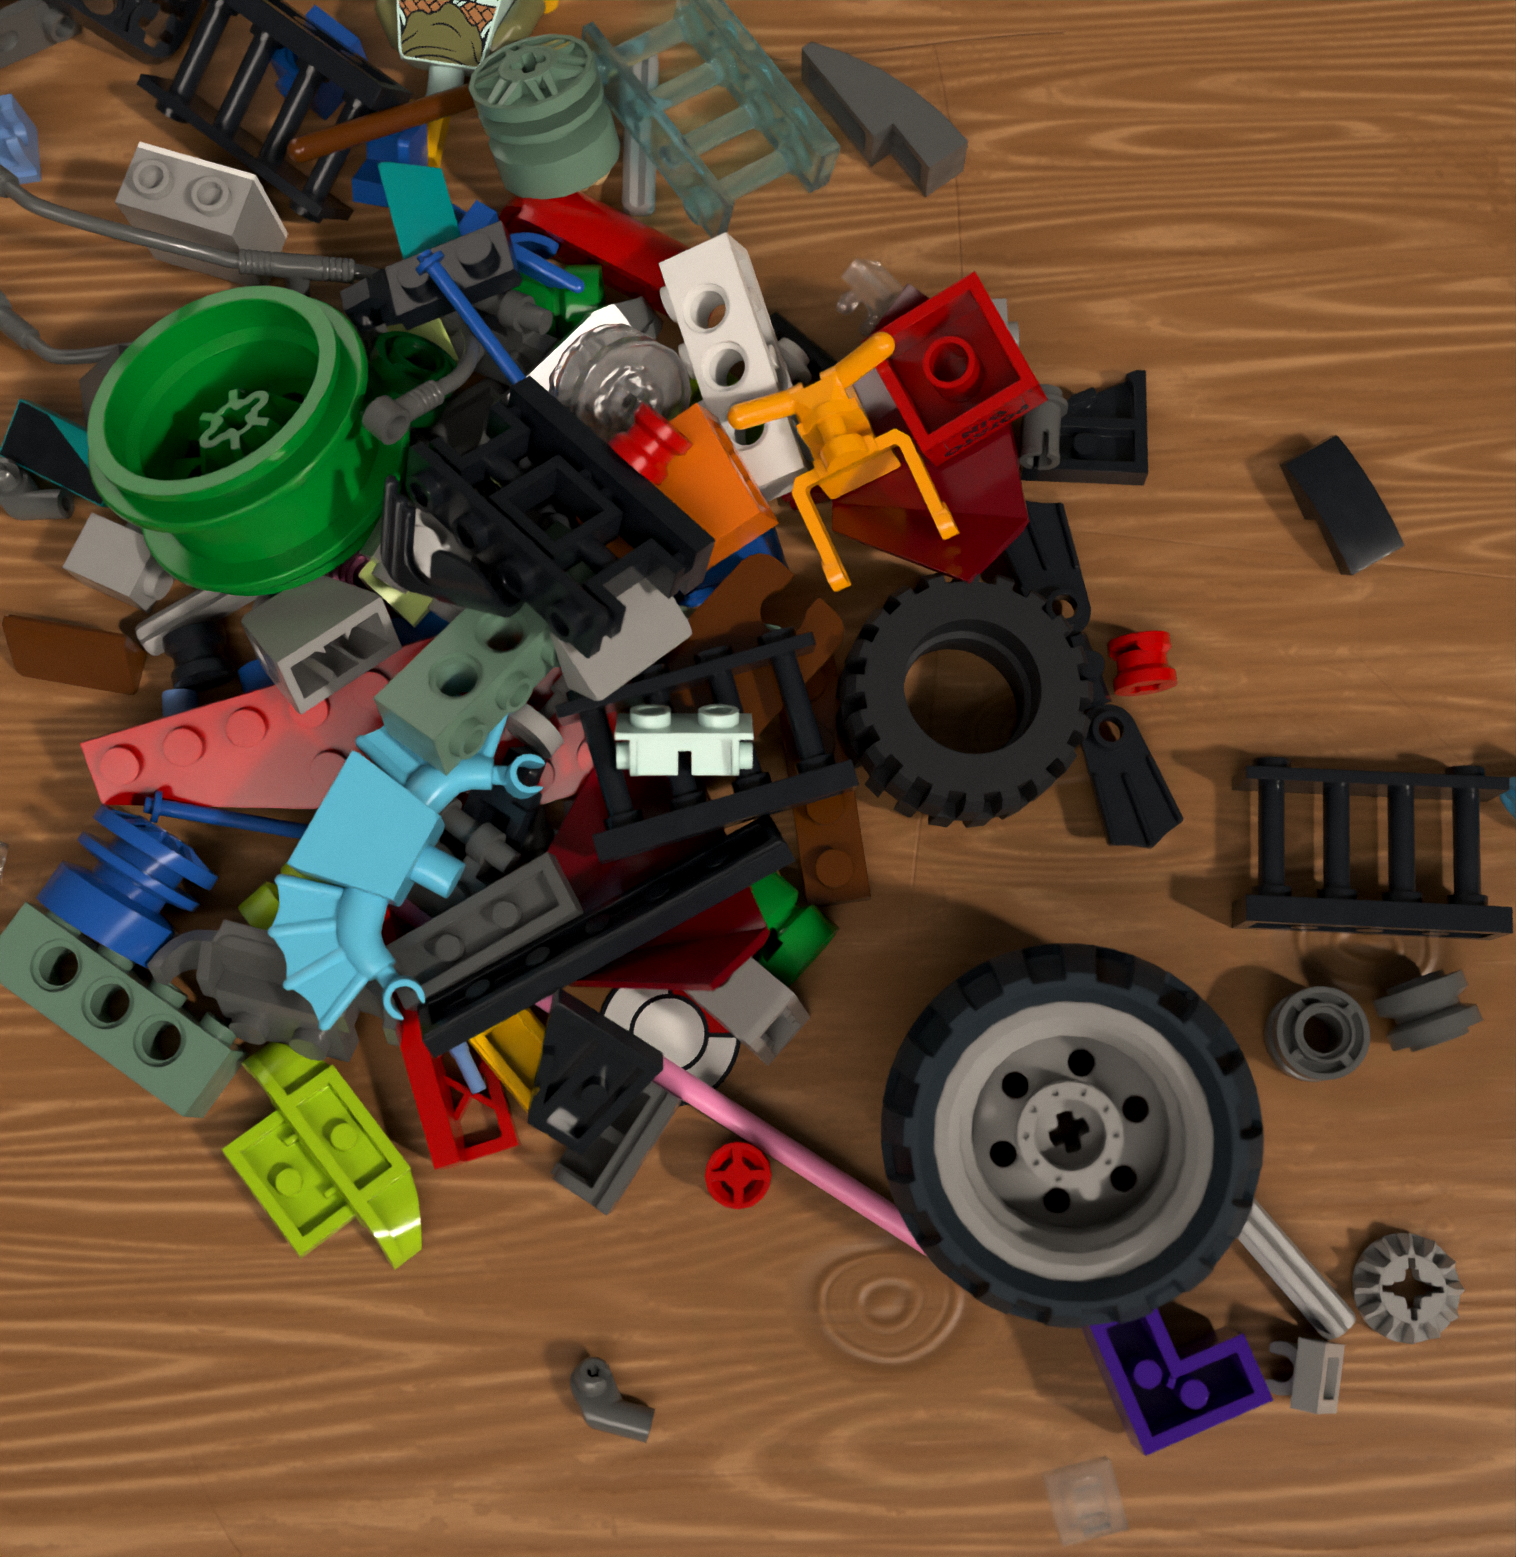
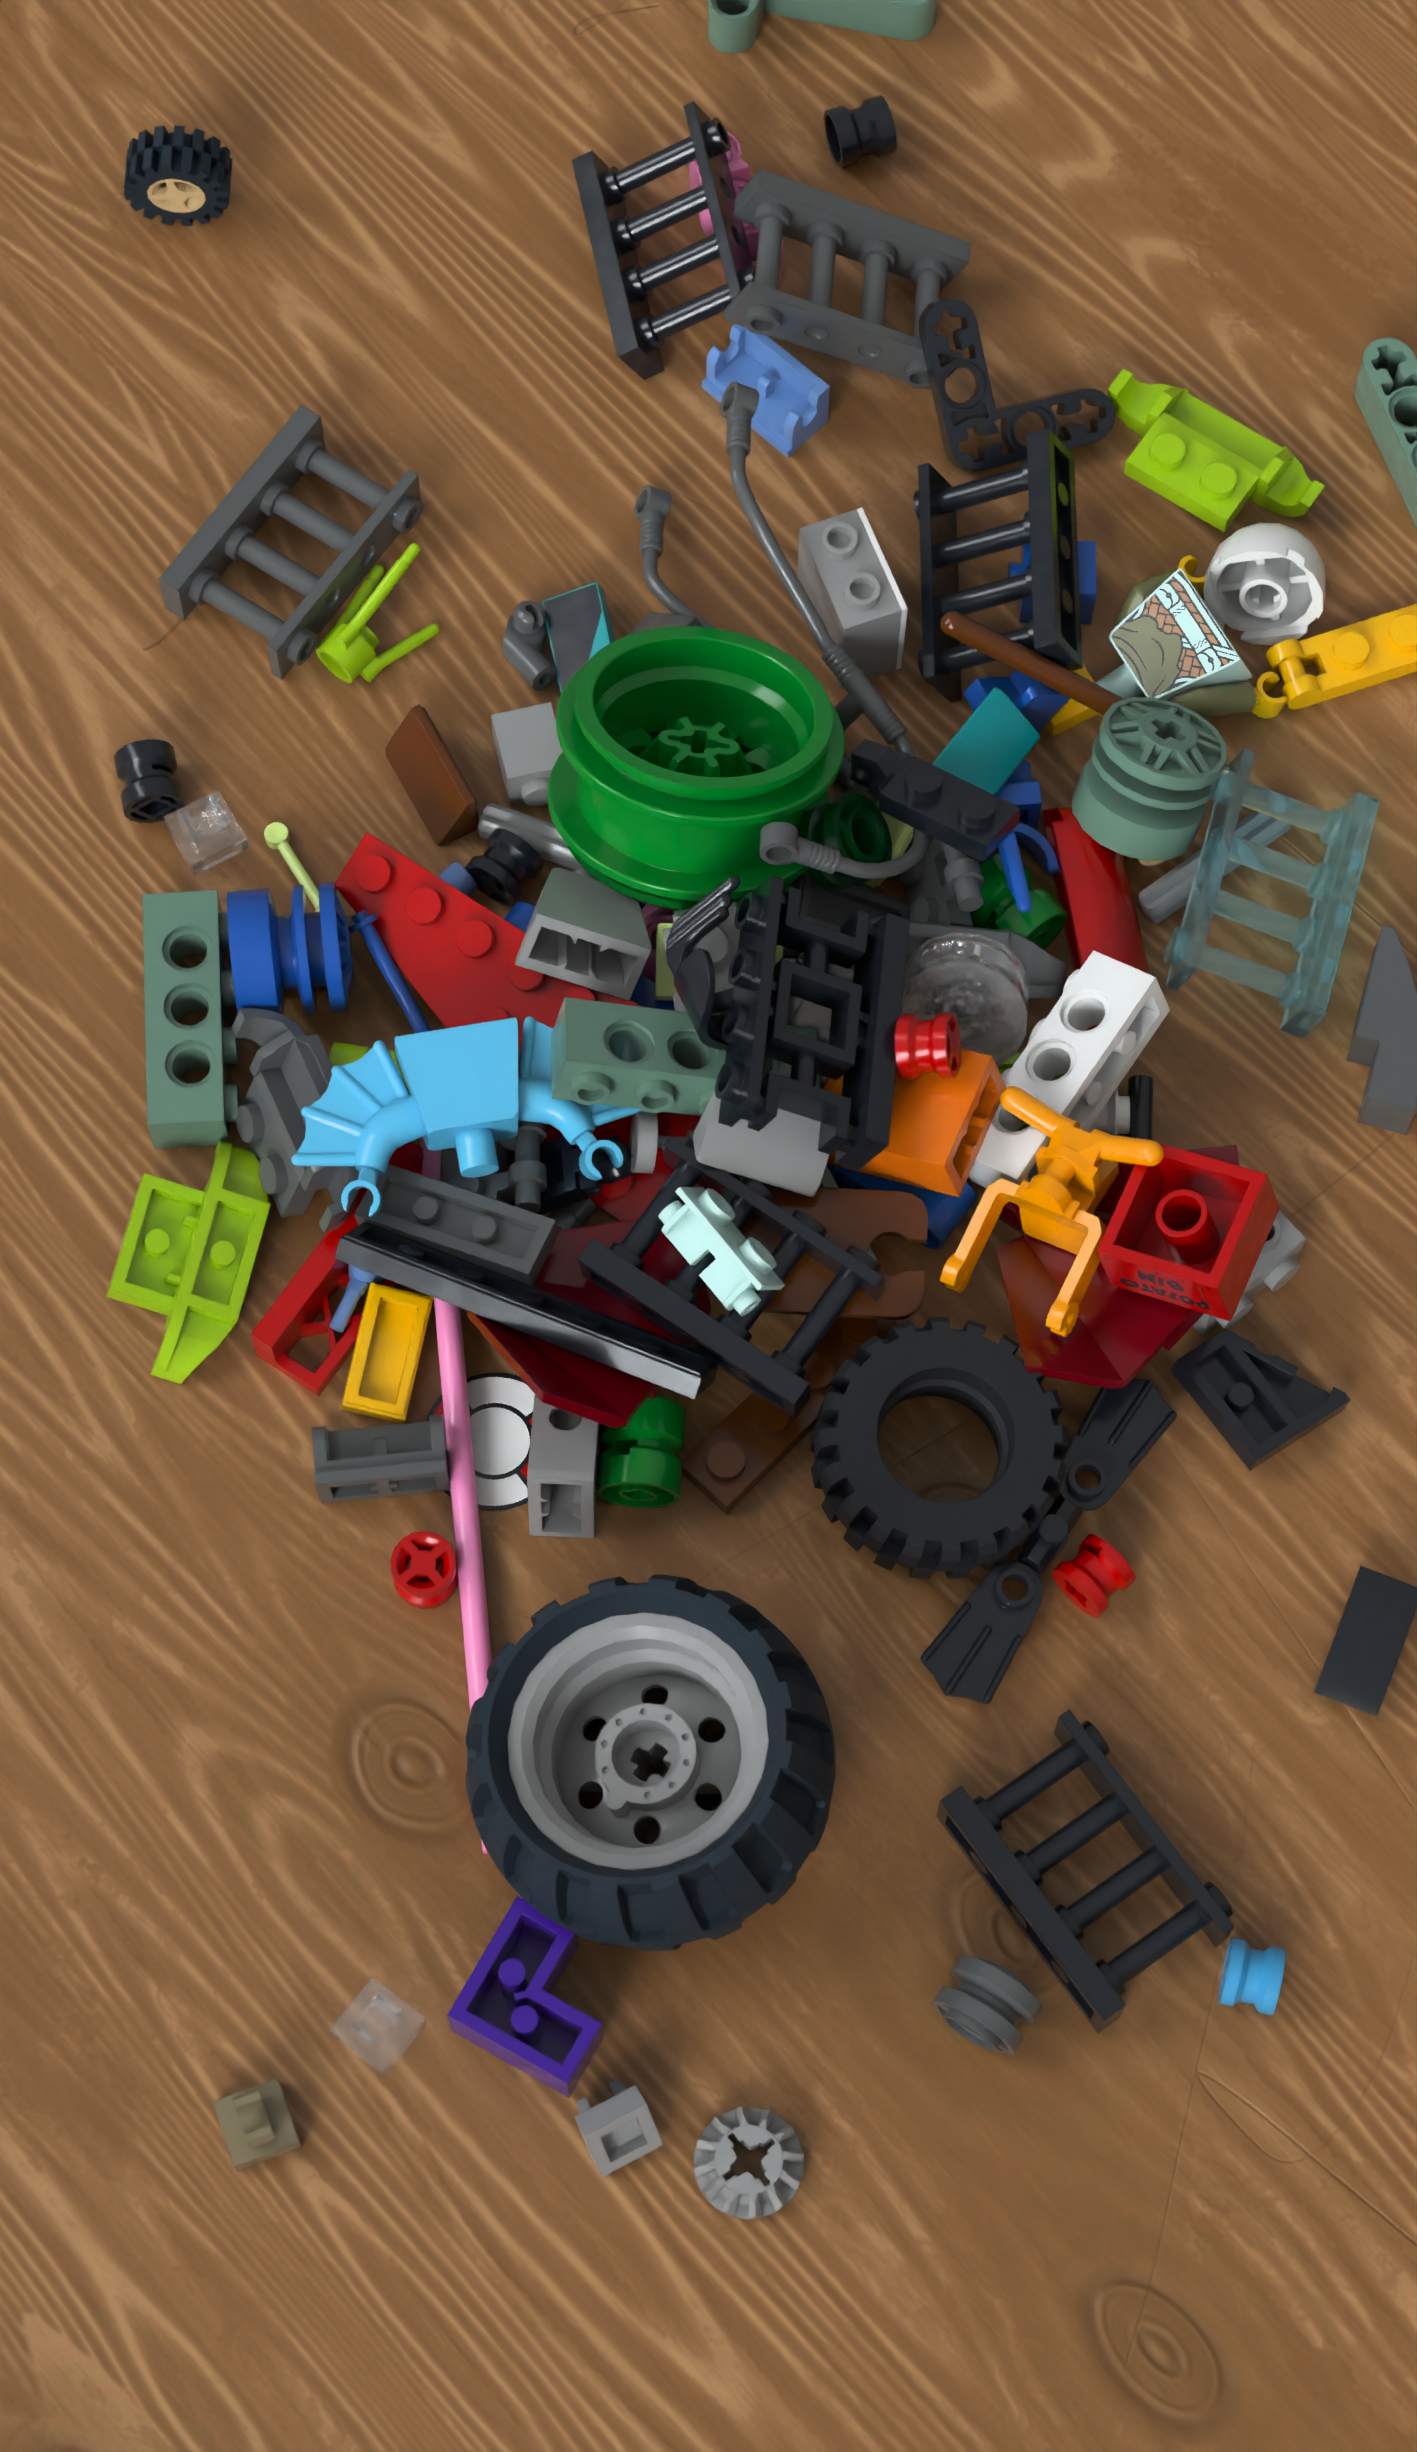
camera: 45 degrees right, 10 degrees down
(21, 815) = (278, 838): none -> yellowish green hinge
(431, 264) = (936, 784): blue axle -> none
(586, 1073) = (411, 1382): black wing -> none
(603, 1405) = (169, 1603): dark grey arm -> none
(872, 287) = (1234, 1125): clear tile -> none
(1042, 430) = (1221, 1345): dark grey pin -> none
(1295, 1274) = (693, 2036): light grey axle -> none
(1346, 1028) = (902, 1903): dark grey wheel -> none

